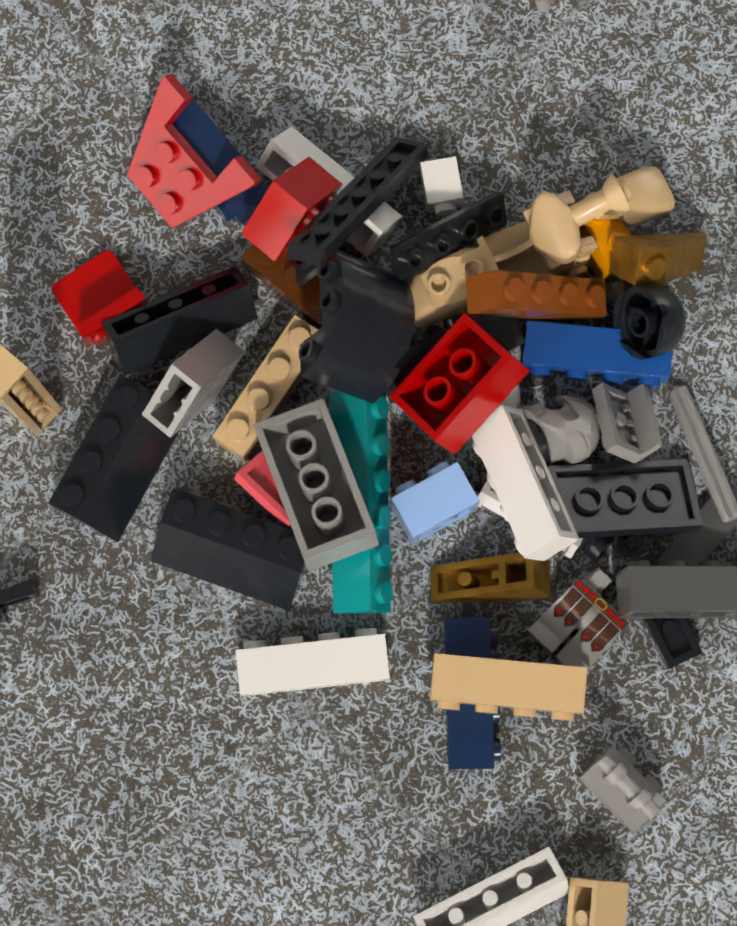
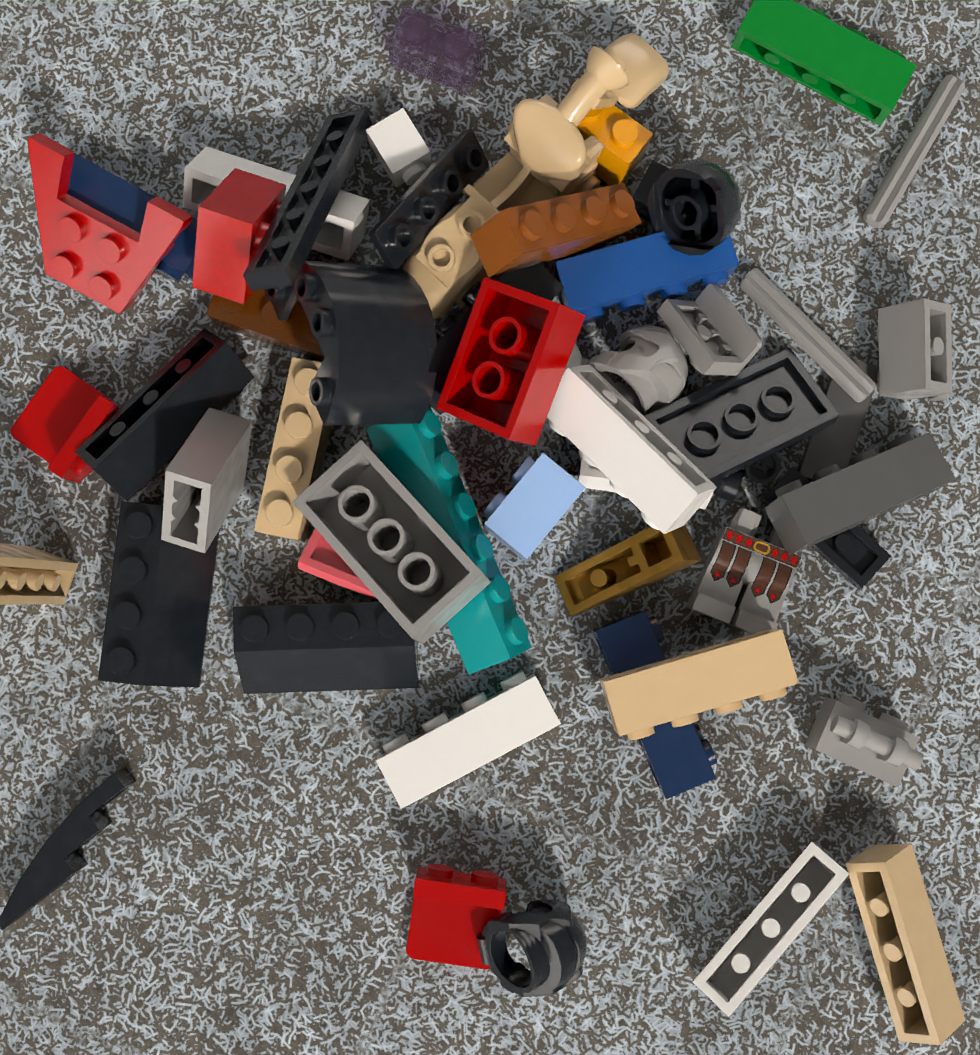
camera: 20 degrees left, 5 degrees up
(247, 799) = (451, 912): none -> red bracket
(316, 842) = (550, 940): none -> black helmet
(500, 121) = (436, 51): none -> clear purple brick
(657, 257) = (671, 133): pearl gold slope -> none

